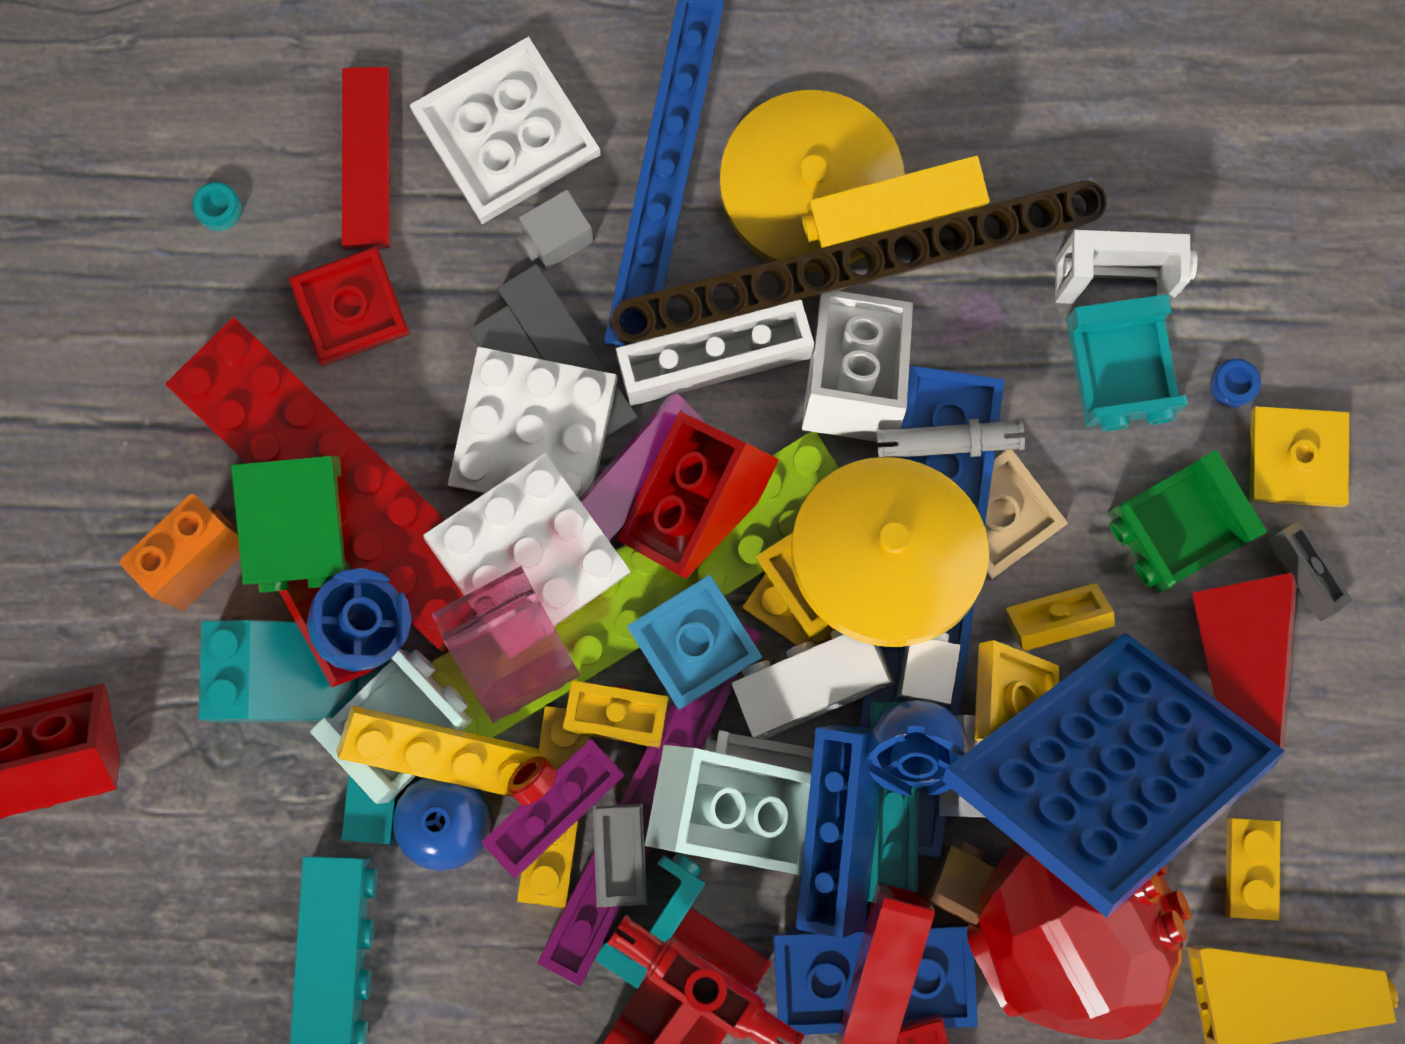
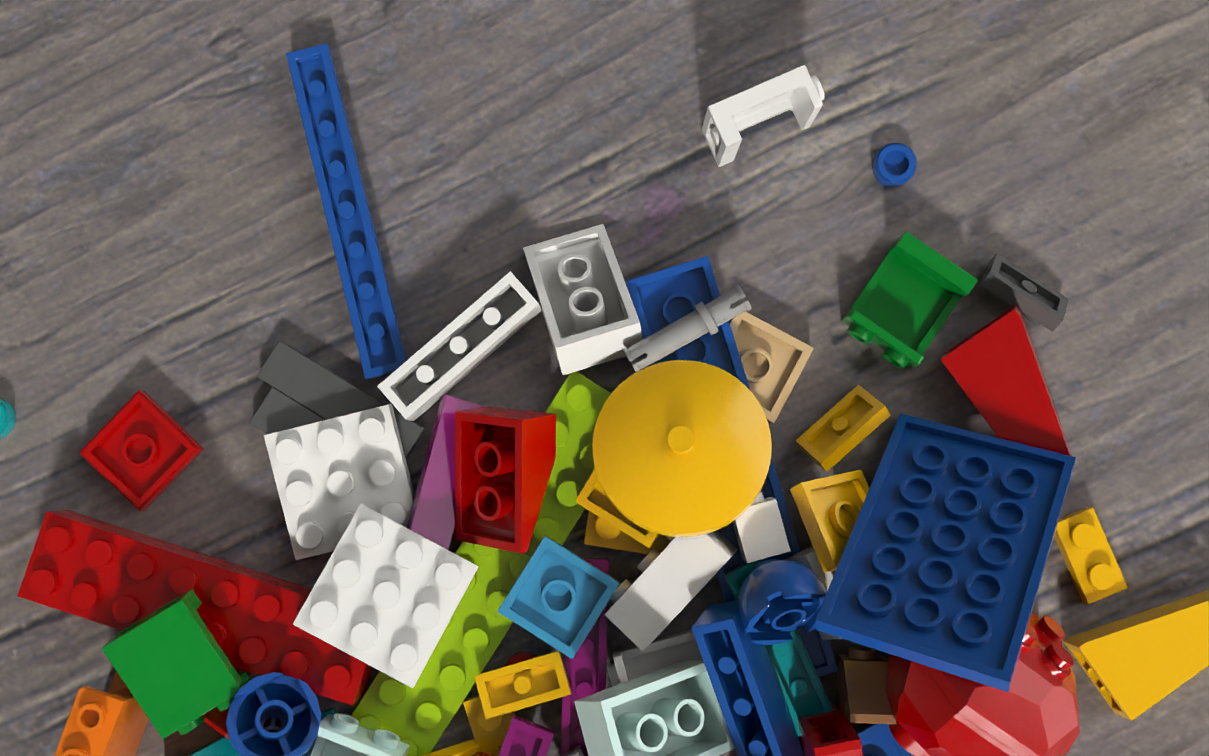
camera: 20 degrees left, 5 degrees up
(366, 157) = (94, 318): red tile -> none
(505, 130) = (197, 240): white plate -> none
(505, 644) = (403, 682): clear pink panel -> none
(554, 230) = (279, 306): light grey brick -> none
(797, 152) = (472, 160): yellow dish -> none
(879, 251) = (594, 177): dark brown beam -> none
(896, 203) = (550, 153): yellow slope -> none
(1124, 363) = (798, 192): teal panel -> none
(1299, 457) = (973, 201): yellow plate -> none

